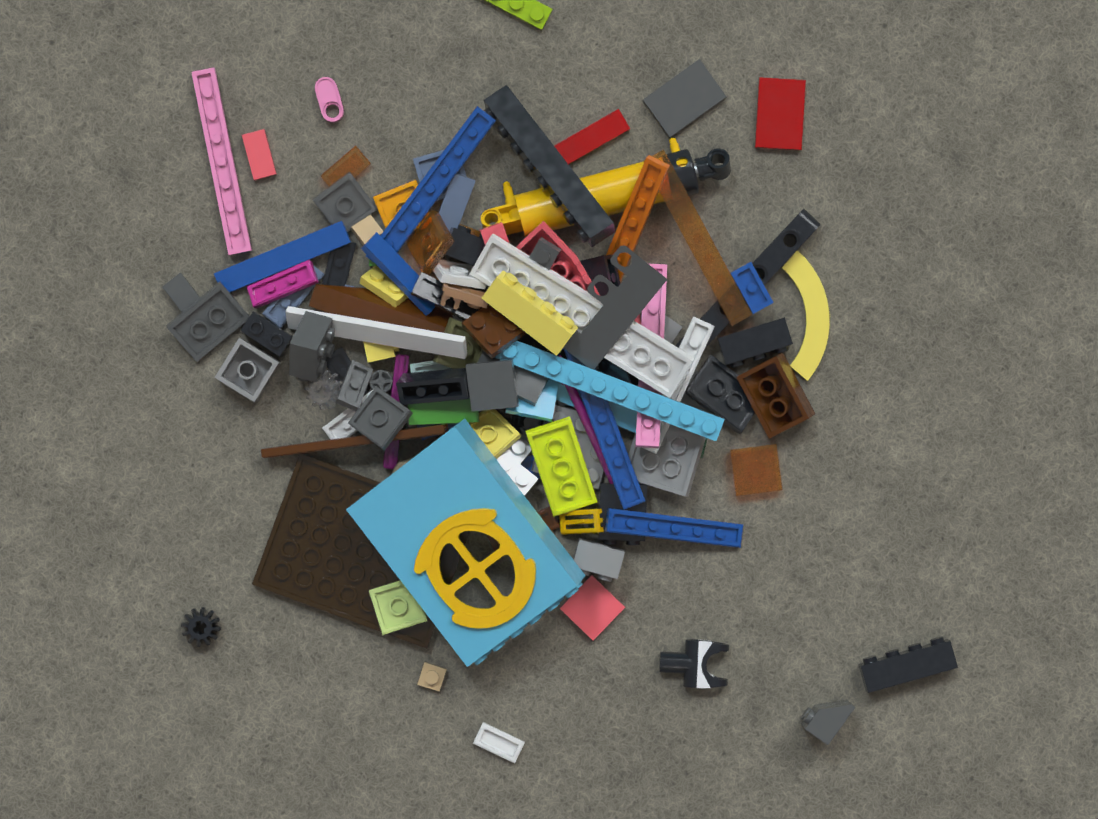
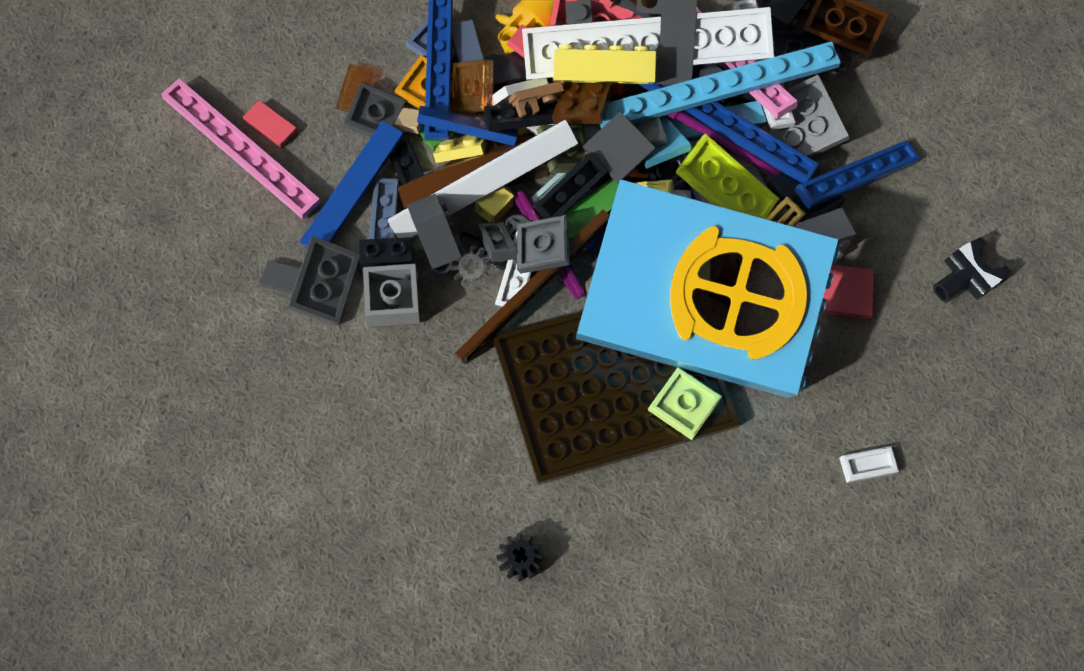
camera: 45 degrees left, 20 degrees down
(282, 284) = (368, 208): dark pink tile -> none
(327, 95) = (296, 42): bright pink piece -> none
(432, 676) = (763, 449): tan plate -> none
(756, 469) = (878, 92): clear orange plate -> none

